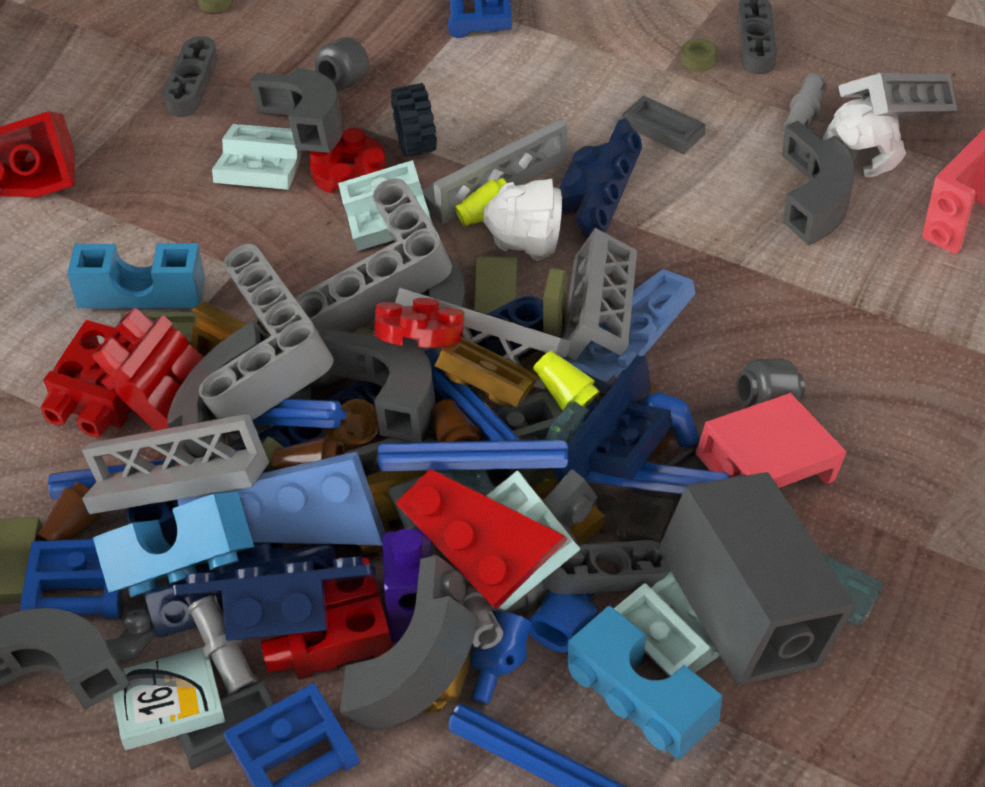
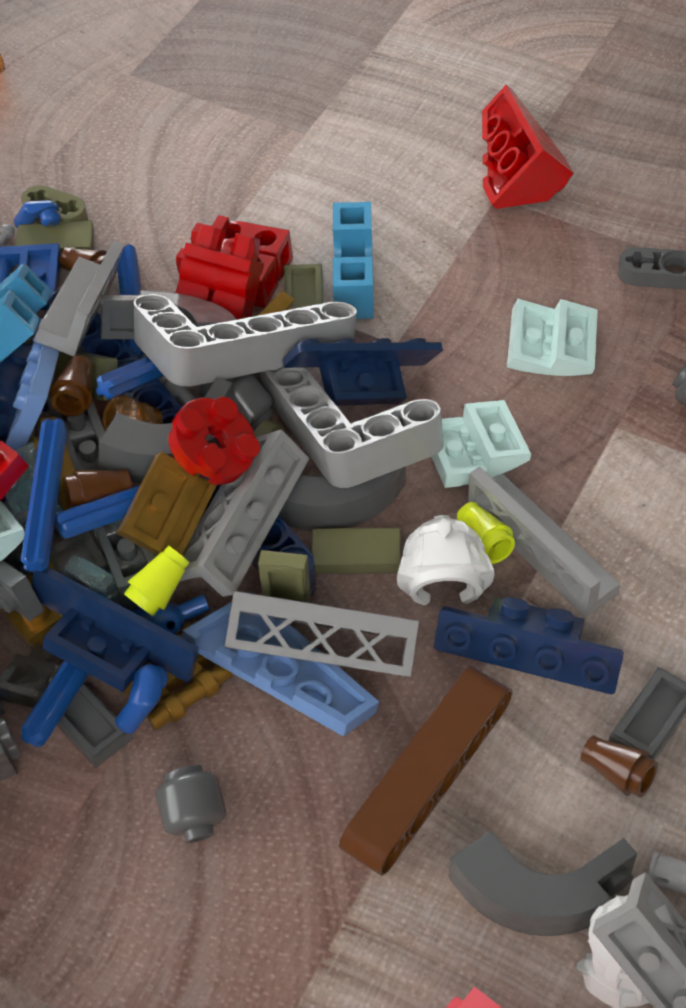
camera: 90 degrees right, 5 degrees up
(294, 266) = (362, 371): none -> dark blue bracket
(308, 101) = (605, 366): dark grey arch -> none
(353, 147) = (554, 392): red plate -> none
(413, 119) = (598, 448): black bush -> none
(714, 136) = (623, 766): none -> reddish brown cone
(724, 243) = (425, 771): none -> reddish brown beam
(773, 439) = (89, 793): coral panel -> none

